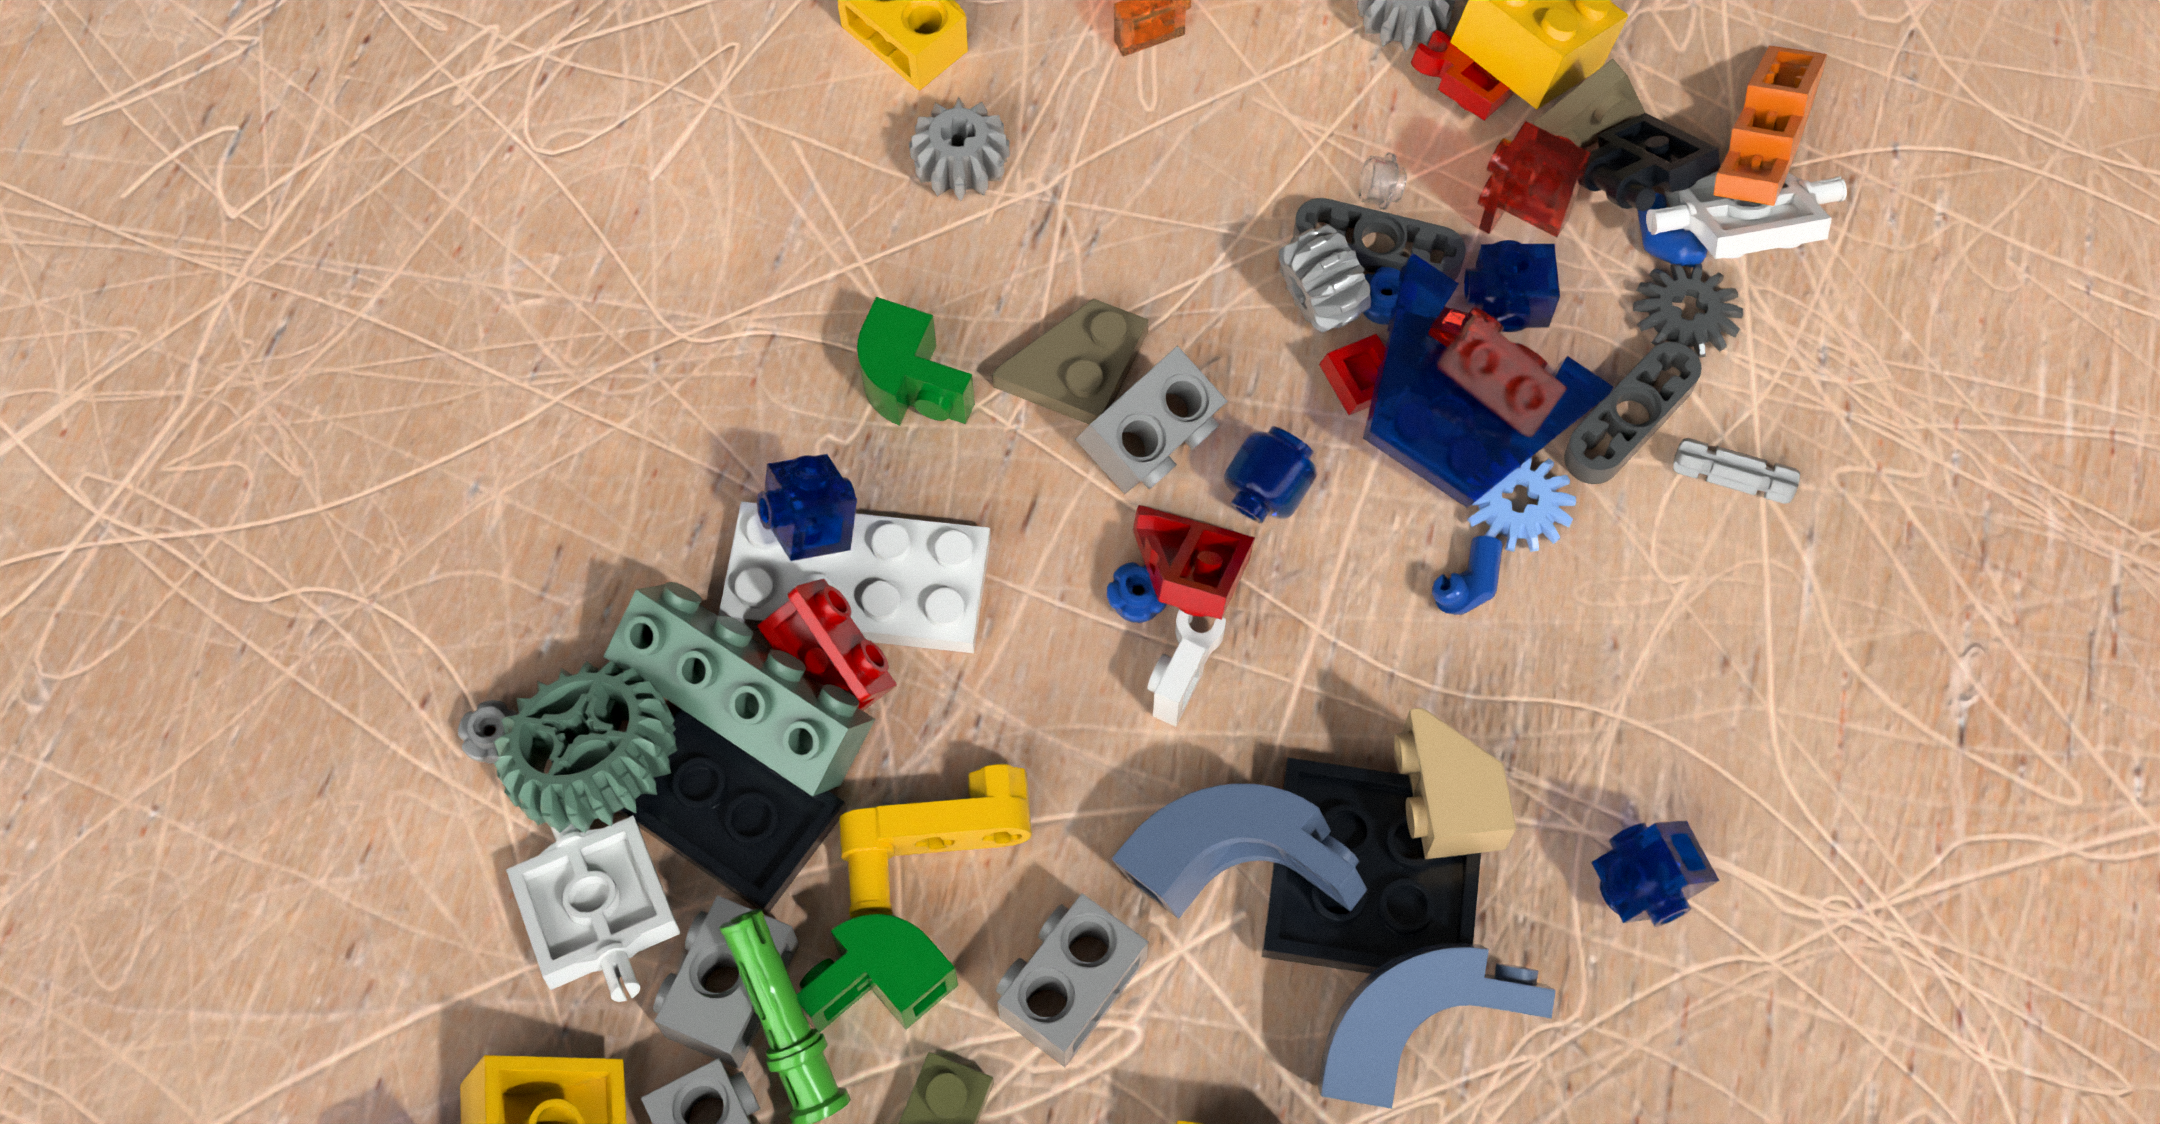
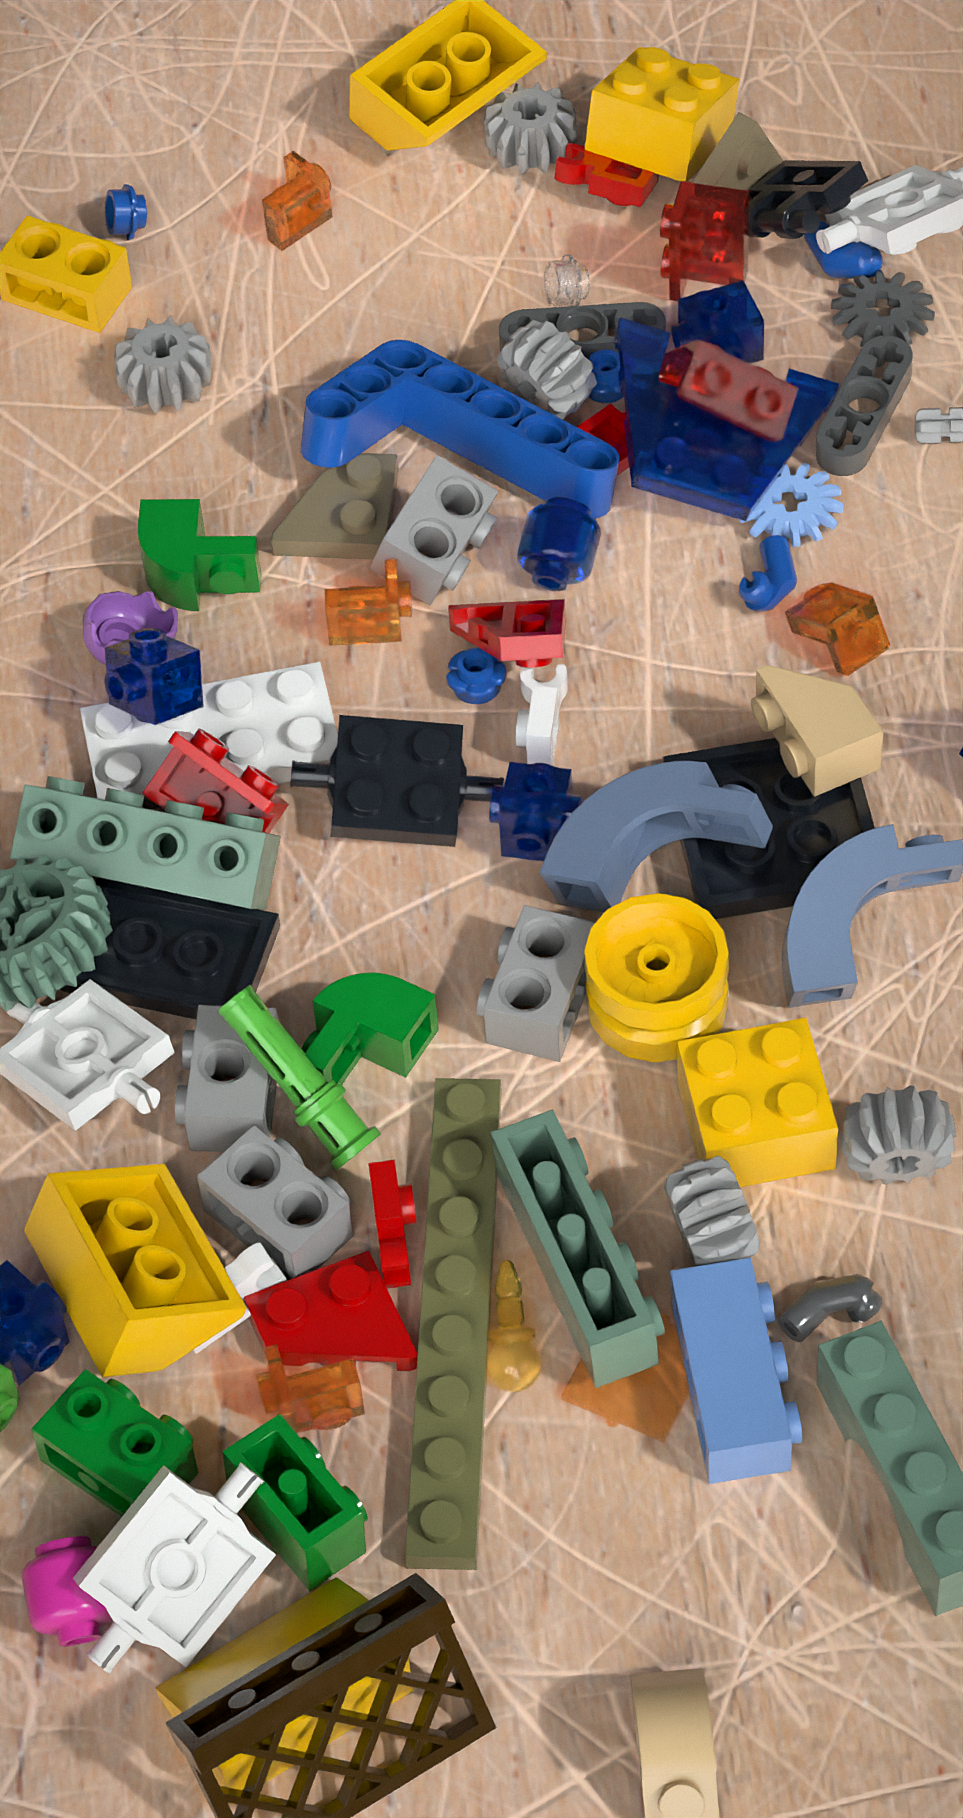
camera: 15 degrees left, 10 degrees down
(817, 424) = (118, 614): none -> medium lavender hair
(990, 818) = (409, 888): yellow beam -> none
(1014, 691) = (396, 780): none -> black plate
(1055, 491) = (368, 612): none -> clear orange bracket
(1130, 796) = (532, 808): none -> clear blue brick
(1196, 981) = (656, 975): none -> yellow wheel
(1228, 297) = (461, 412): none -> blue beam
(1523, 660) = (842, 621): none -> clear orange bracket
(1770, 125) = (900, 135): orange slope -> none

